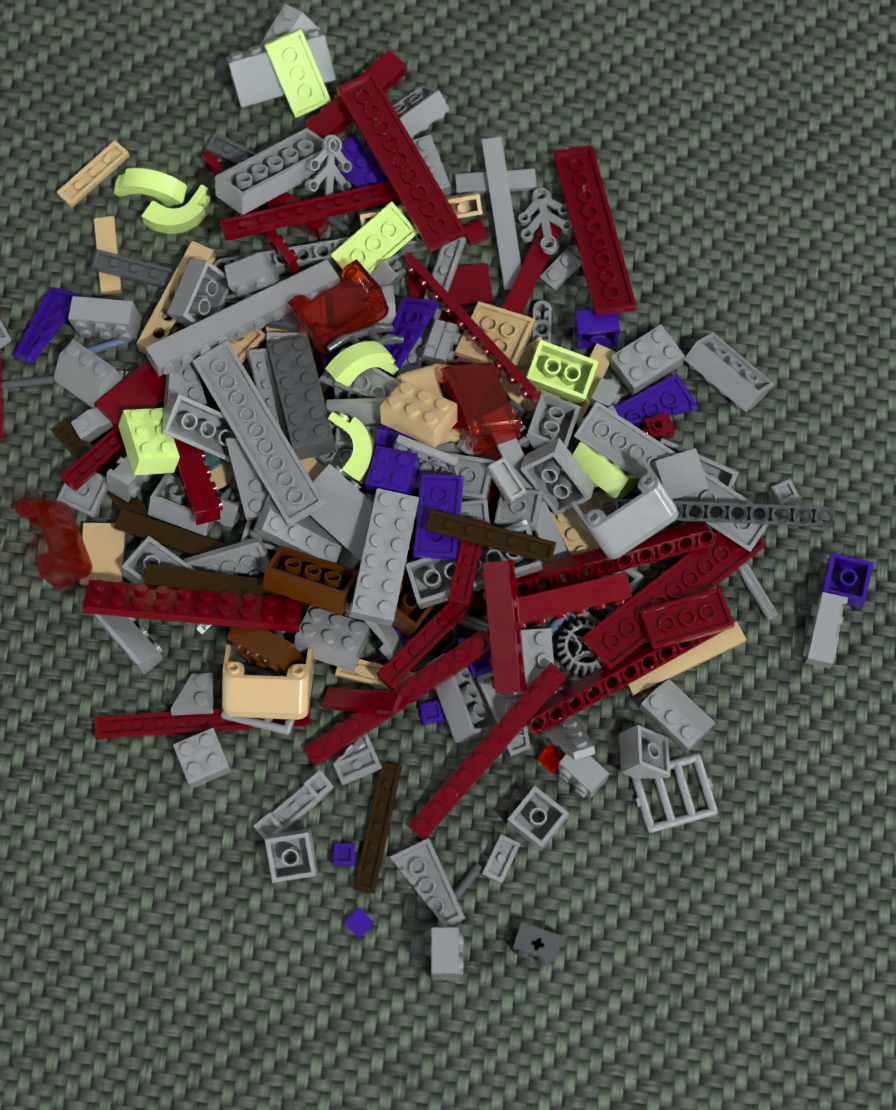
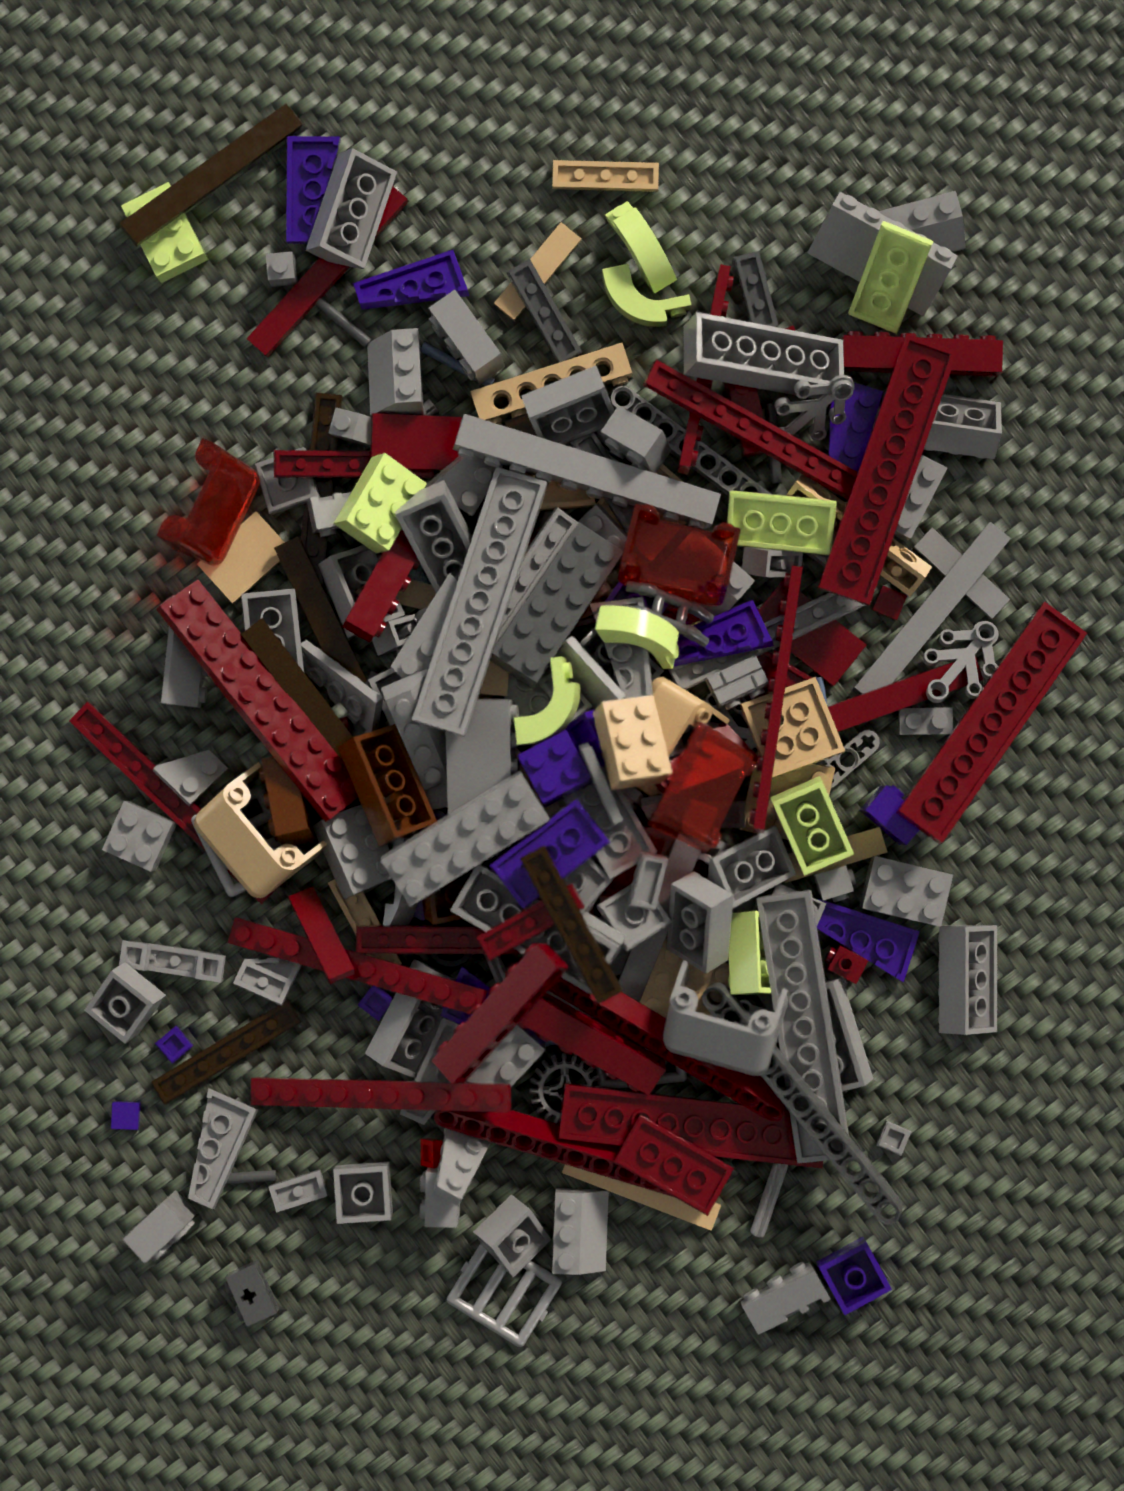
camera: 50 degrees right, 15 degrees up
(682, 474) = (810, 1036): light grey tile -> none

